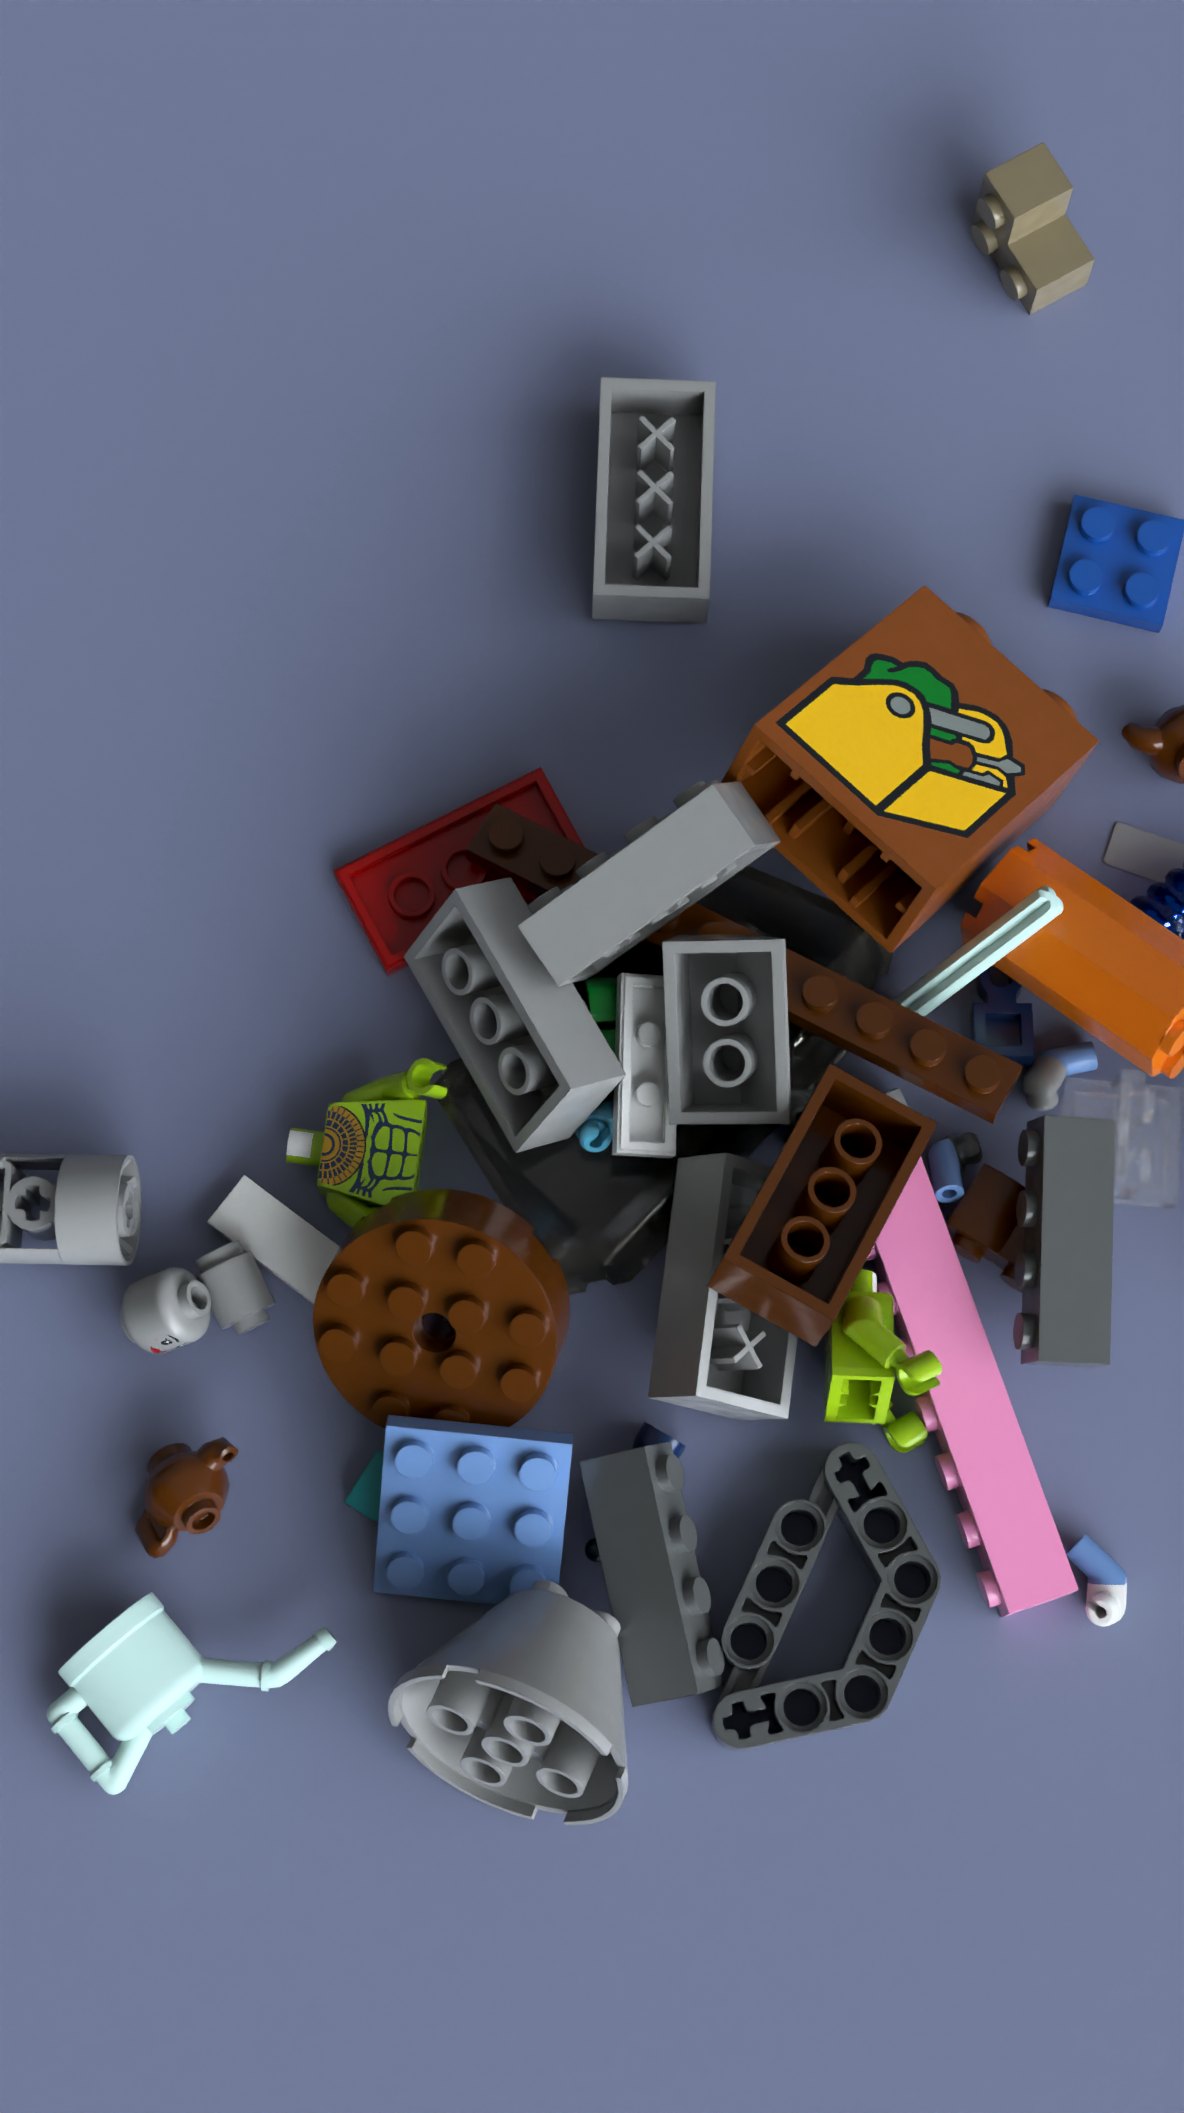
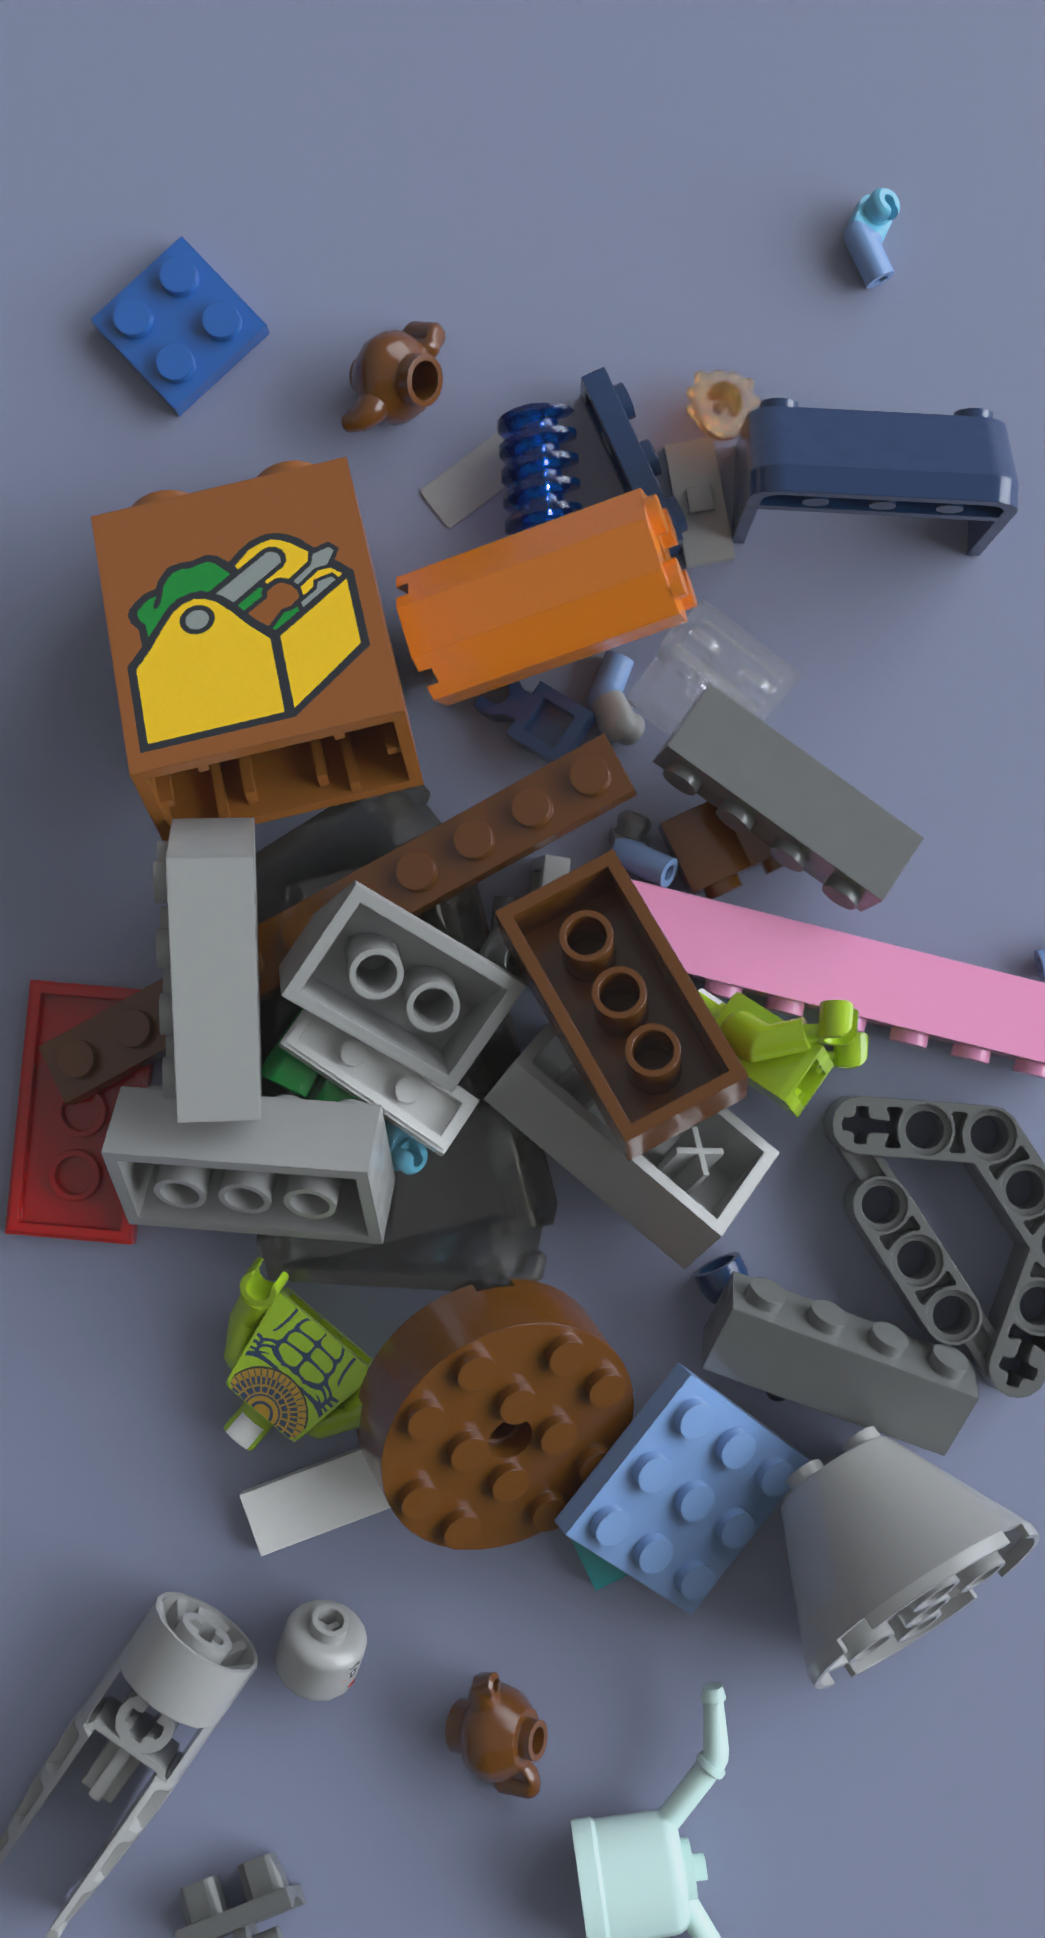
camera: 55 degrees left, 10 degrees up
(235, 1287) = (340, 1571): light grey brick -> none
(982, 951) = (474, 700): light aqua axle -> none

